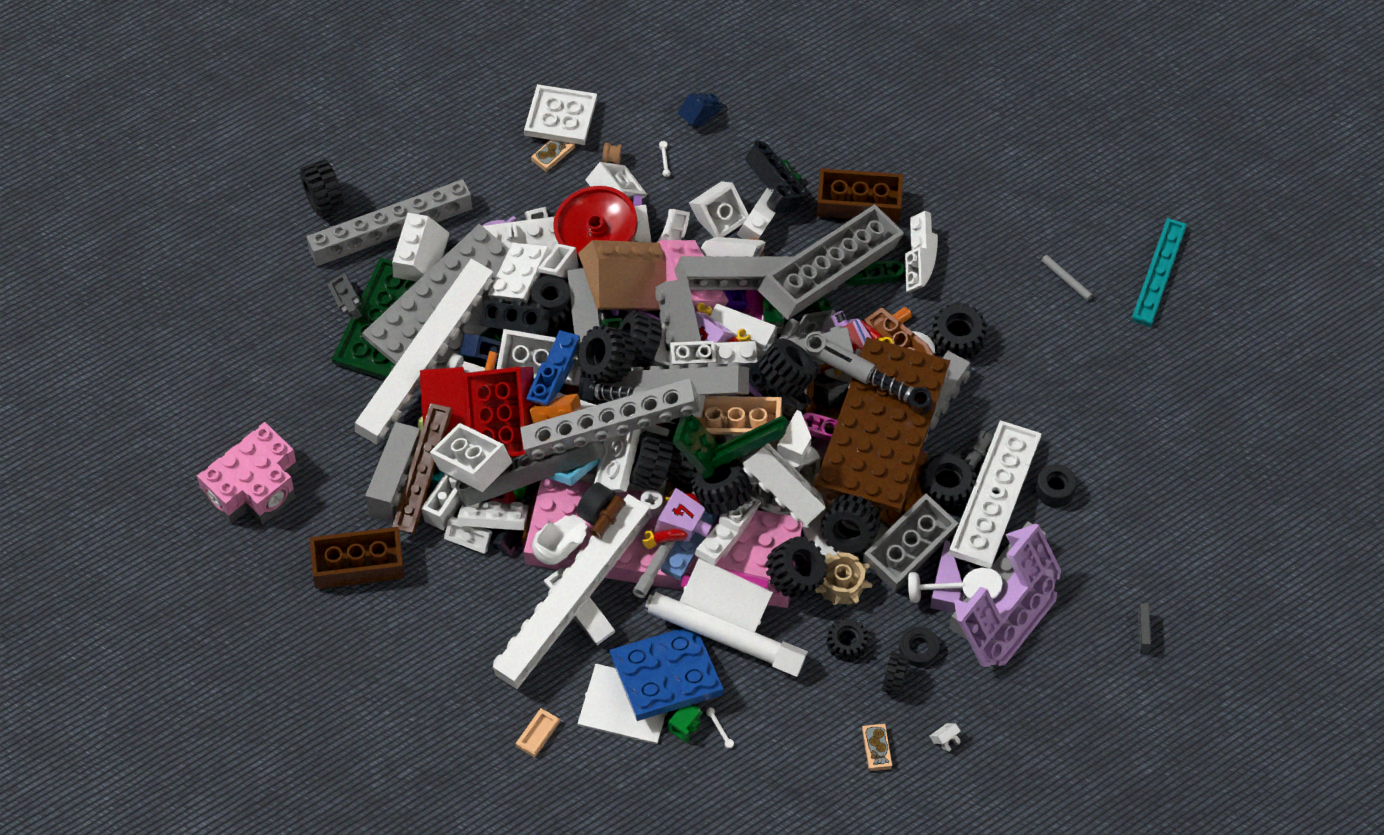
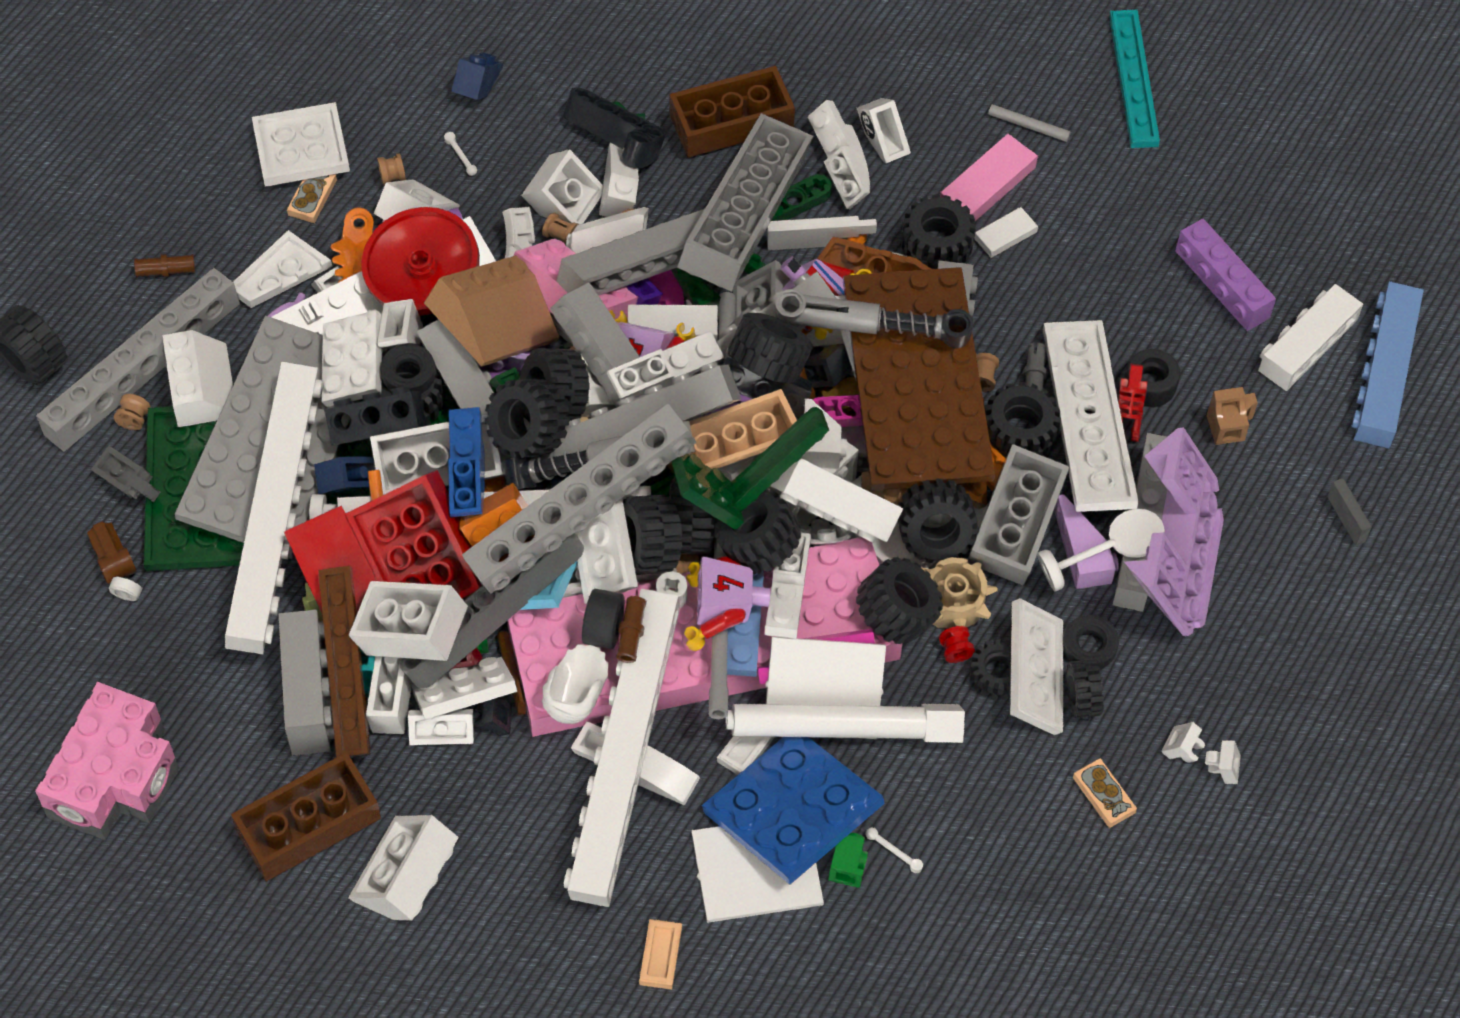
camera: 25 degrees left, 0 degrees up
(313, 370) = (125, 589): none -> white tile
(314, 348) = (111, 555): none -> reddish brown piece
(369, 256) = (131, 412): none -> medium nougat wheel
(404, 614) = (404, 866): none -> white slope
(435, 165) = (164, 265): none -> reddish brown pin
(507, 195) = (279, 269): none -> white wing
(559, 195) = (352, 243): none -> orange plant
(653, 626) = (742, 752): none -> white tile
(702, 232) = (557, 228): none -> medium nougat bush
(827, 612) = (956, 644): none -> red wheel
(871, 647) = (1037, 667): none -> white tile
(874, 299) = (815, 232): none -> white piece
(942, 438) = (987, 365): none -> medium nougat bush
(960, 245) = (884, 129): none -> white slope
(967, 759) = (1225, 762): none -> white tile
(1009, 348) = (1006, 232): none -> white tile
(1017, 306) = (992, 176): none -> bright pink piece
(1030, 496) = (1132, 398): none -> red hinge
(1097, 531) = (1230, 414): none -> medium nougat brick
(1145, 434) = (1225, 274): none -> medium lavender brick
(1183, 499) = (1309, 337): none -> white brick
(1228, 538) = (1388, 364): none -> medium blue brick

